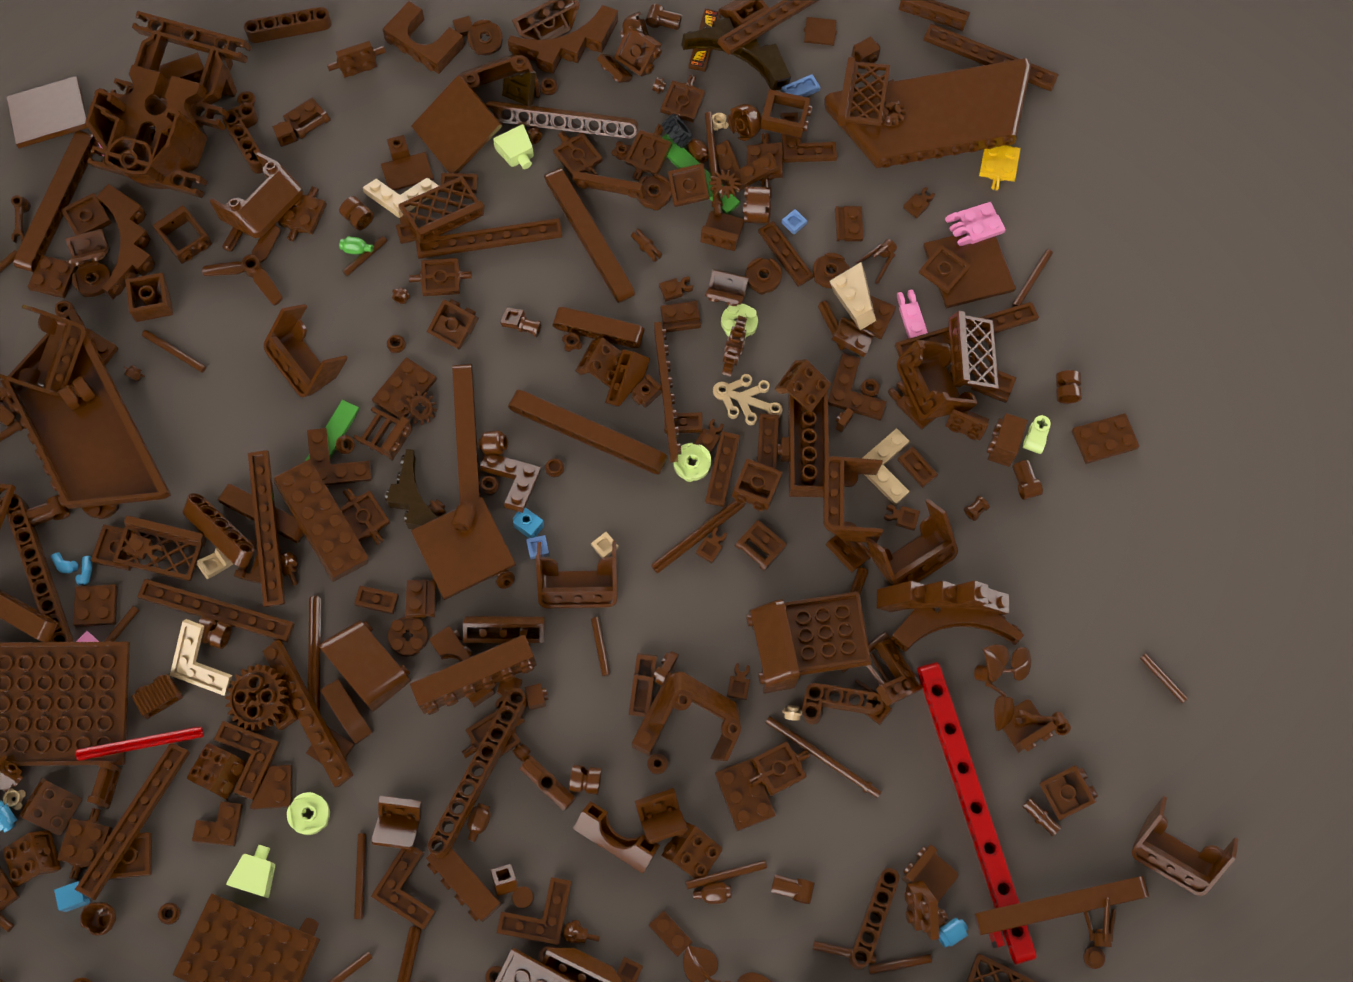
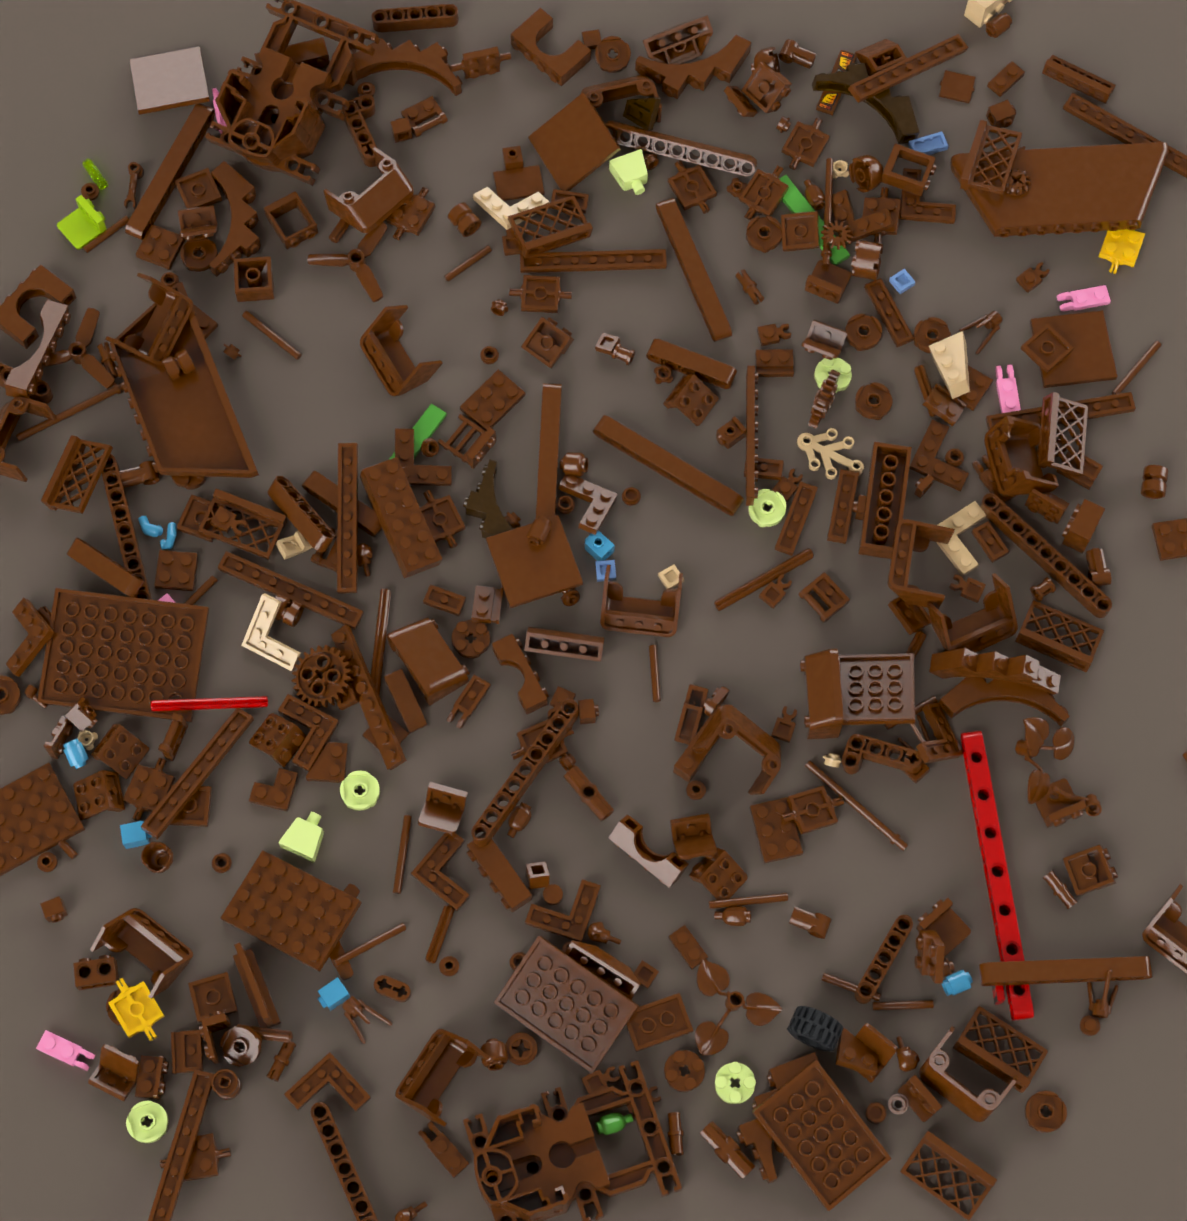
camera: 10 degrees right, 0 degrees up
(156, 696) = (228, 662): reddish brown brick -> none
(284, 62) = (430, 61): none -> reddish brown arch
(355, 246) = (459, 252): bright green plant -> none
(407, 706) = (469, 700): none -> reddish brown hinge
(424, 402) = (511, 416): reddish brown gear -> none
(473, 675) = (532, 681): reddish brown brick -> none
(548, 82) = (671, 108): reddish brown plate -> none
(585, 779) = (625, 794): reddish brown wheel -> none
(608, 184) = (720, 221): reddish brown plate -> none
(628, 374) = (715, 414): reddish brown slope -> none
(677, 130) = (796, 174): black tyre -> none
(756, 485) = (827, 538): reddish brown plate -> none
(779, 351) = (869, 410): none -> reddish brown plate
(804, 384) = (888, 445): reddish brown bracket -> none
(849, 223) = (957, 290): reddish brown plate -> none
(865, 18) = (1006, 79): none -> reddish brown plate
(980, 230) = (1089, 313): bright pink hinge -> none
(983, 475) = (1047, 564): none -> reddish brown beam
(999, 567) = (1054, 647): none -> reddish brown fence
(1037, 437) = (1114, 527): yellowish green piece -> none

